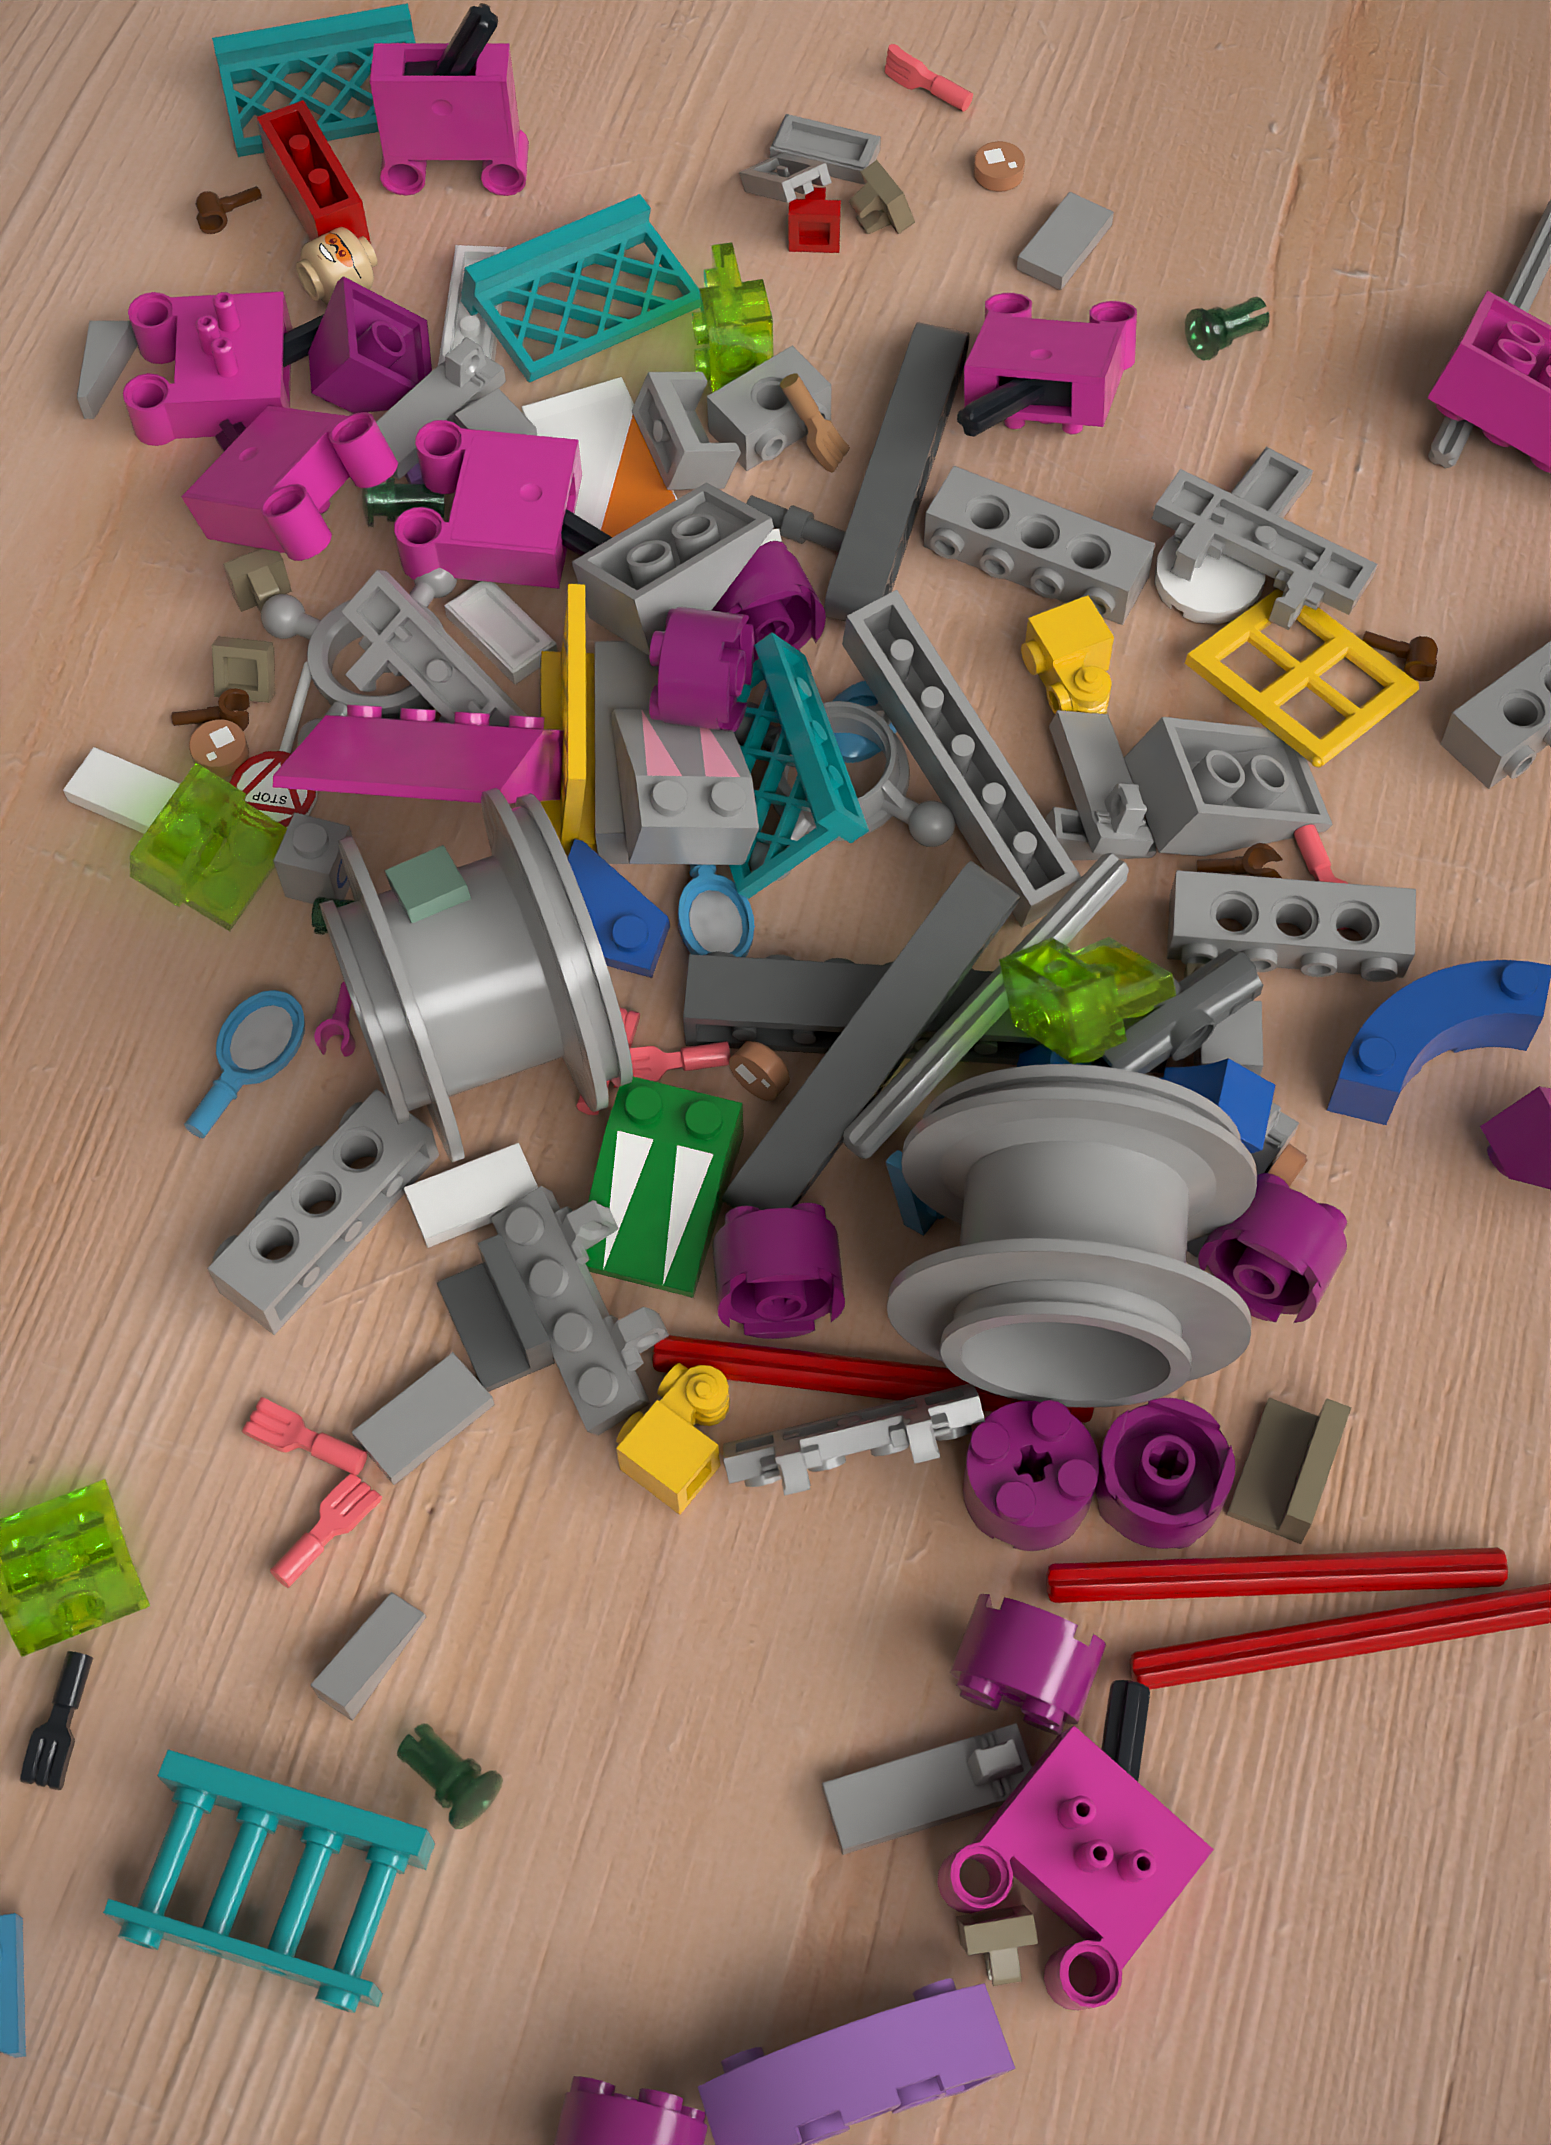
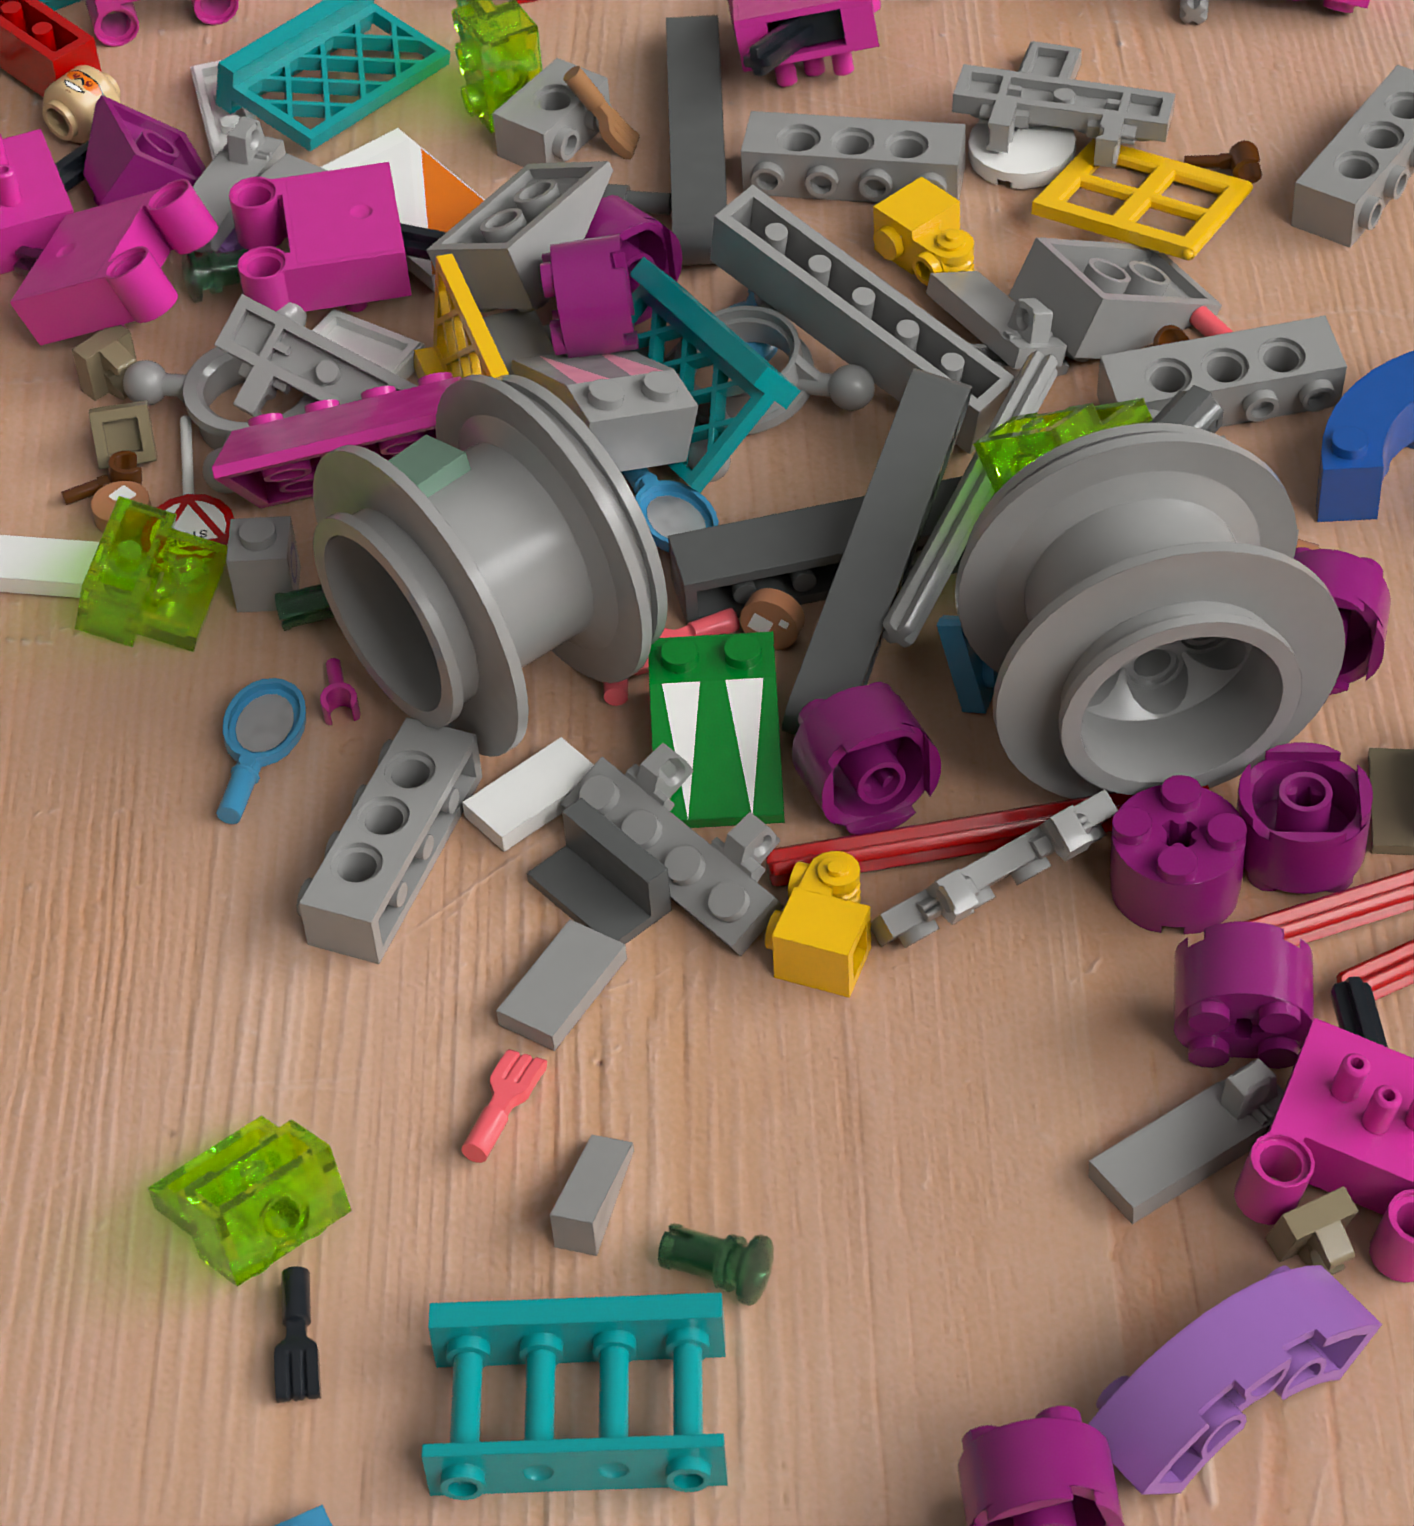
camera: 15 degrees left, 15 degrees down
(287, 1431) = (428, 1034): coral piece -> none
(676, 435) = (468, 152): light grey panel -> none

